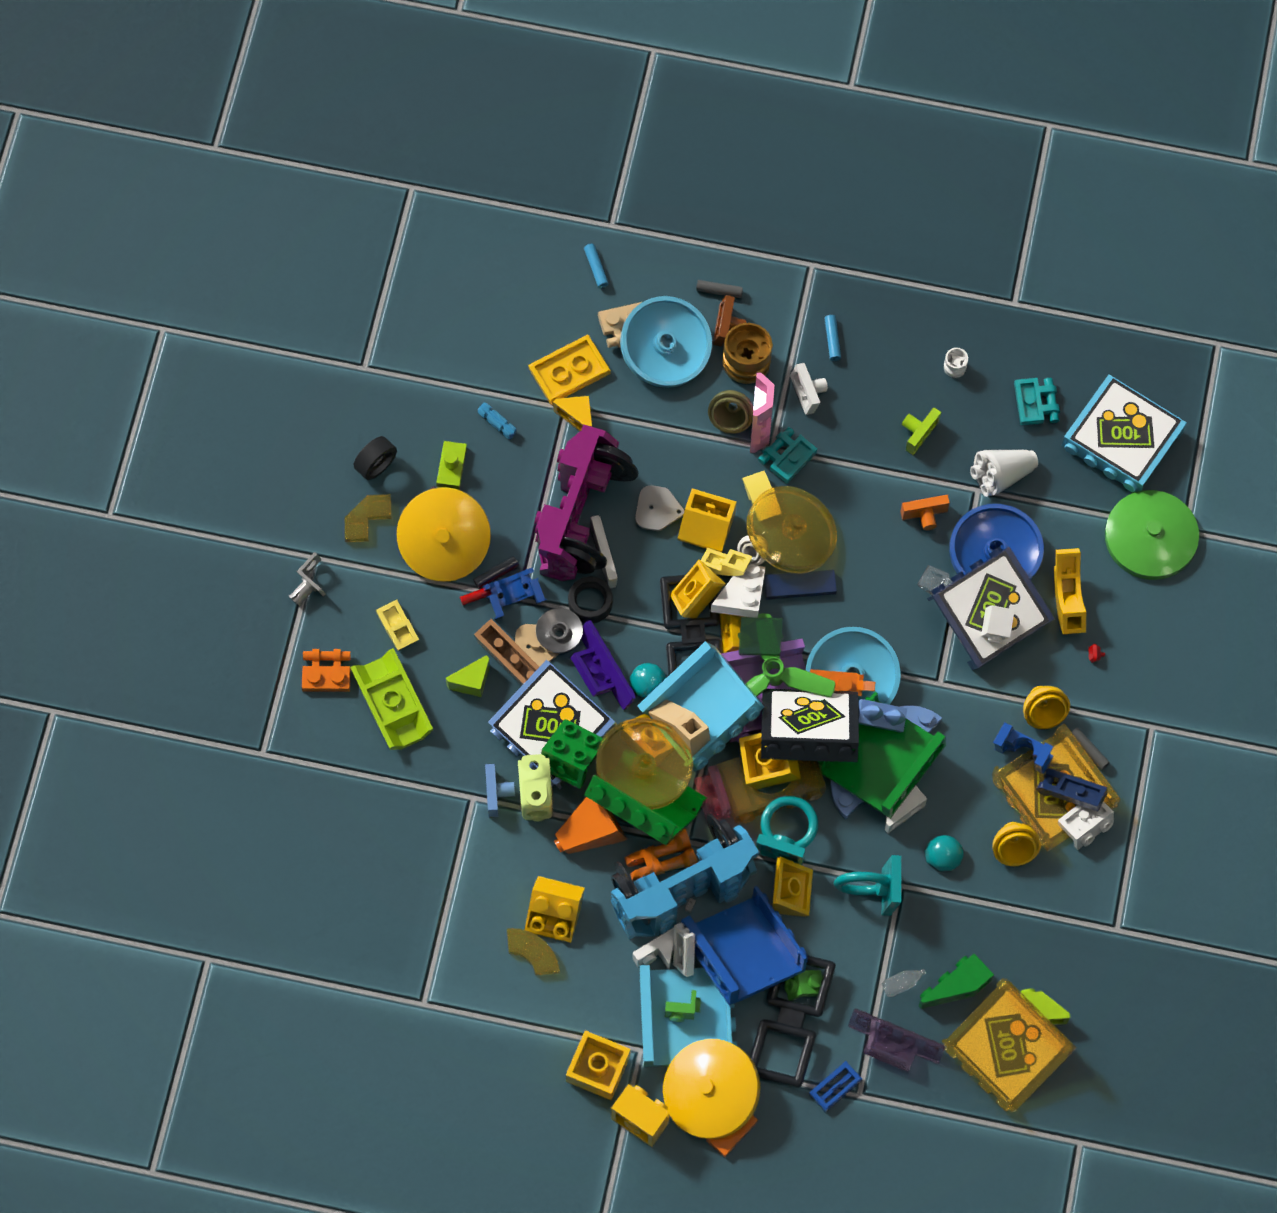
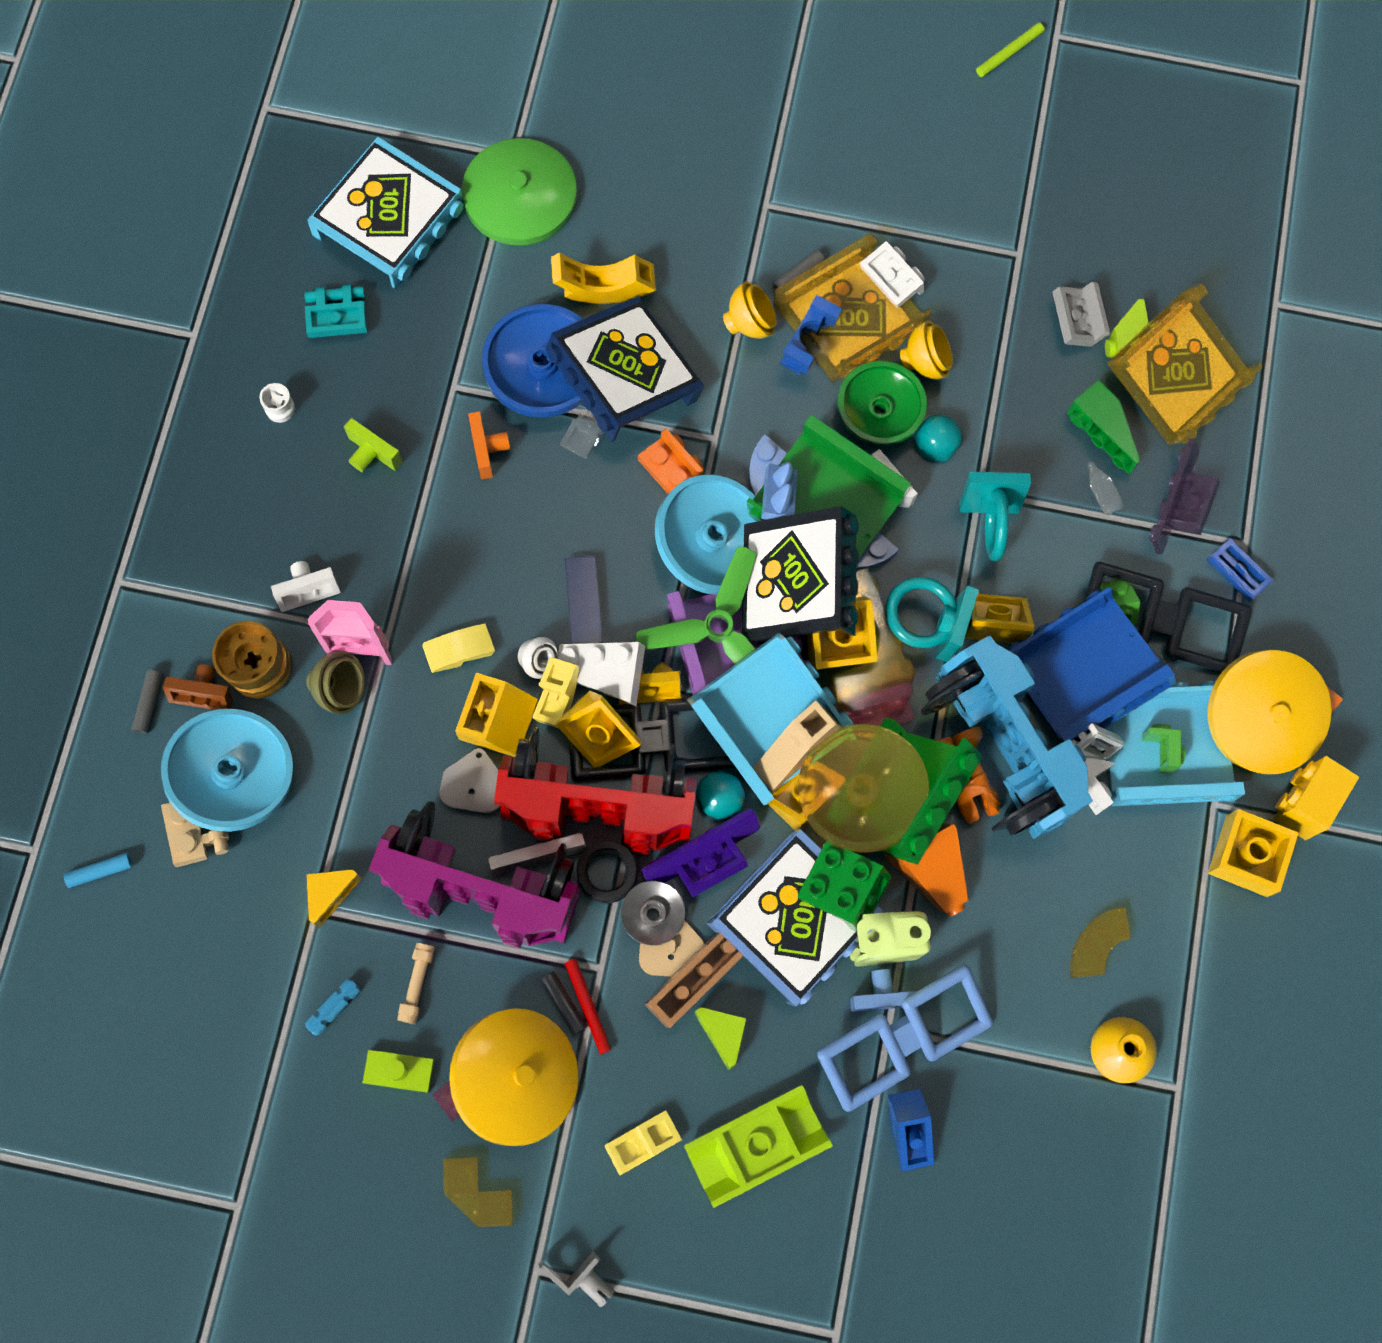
camera: 95 degrees left, 5 degrees up
(326, 678) = (723, 1245): orange plate -> none
(375, 458) = (390, 1183): black tyre -> none
(399, 805) = (911, 1129): none -> blue slope
(452, 973) = (1109, 1051): none -> yellow piece
(464, 802) = (905, 1038): none -> medium blue bar
(492, 470) = (409, 1011): none -> tan bar
(513, 591) = (591, 978): blue piece -> none
(554, 909) = (1043, 913): yellow slope -> none
(569, 369) = (257, 906): yellow tile -> none
(640, 542) = (540, 798): none -> red piece
(760, 636) = (671, 641): clear green piece -> none
(791, 529) = (512, 607): clear yellow dish -> none
(792, 459) = (406, 607): teal plate -> none
(832, 337) = (230, 555): dark azure piece -> none
(847, 681) = (728, 537): orange hinge -> none
(915, 647) = (670, 462): none -> orange bracket
(972, 789) = (887, 388): none -> green dish
(997, 623) = (654, 352): white brick -> none
(1001, 469) = (432, 352): white cone -> none
(1057, 969) = (1081, 314): none -> light grey bracket
(1072, 789) = (861, 282): dark blue plate -> none
(1095, 653) = (675, 260): red rock -> none

